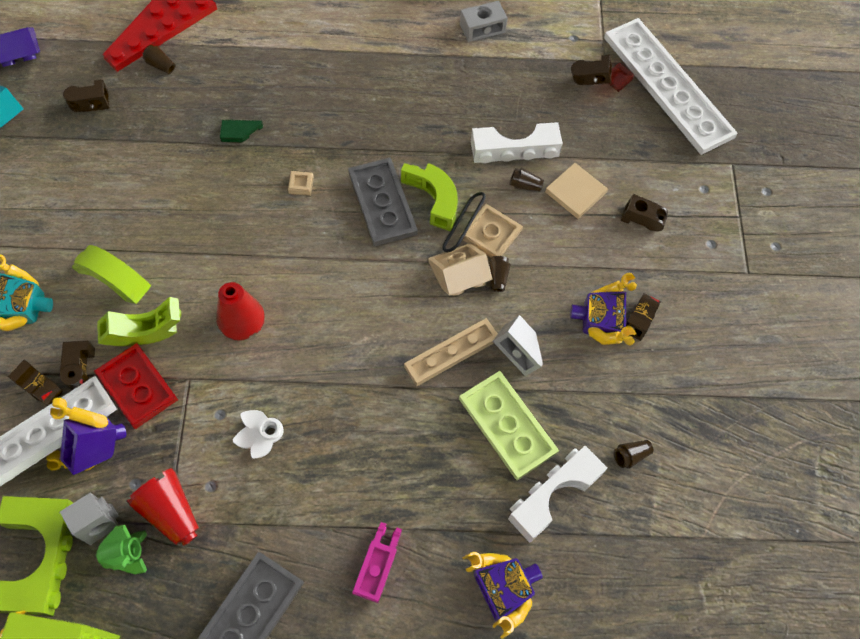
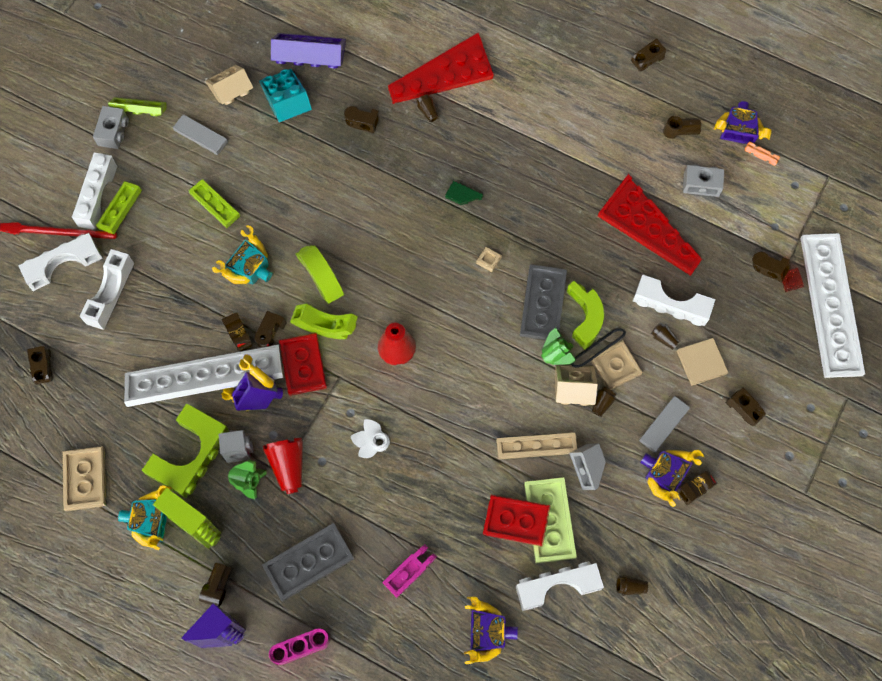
camera: 30 degrees right, 5 degrees up
(422, 241) = (556, 350): none -> bright green brick
(449, 83) = (644, 222): none -> red wing
(472, 442) = (516, 520): none -> red tile
(573, 268) = (664, 424): none -> light grey tile

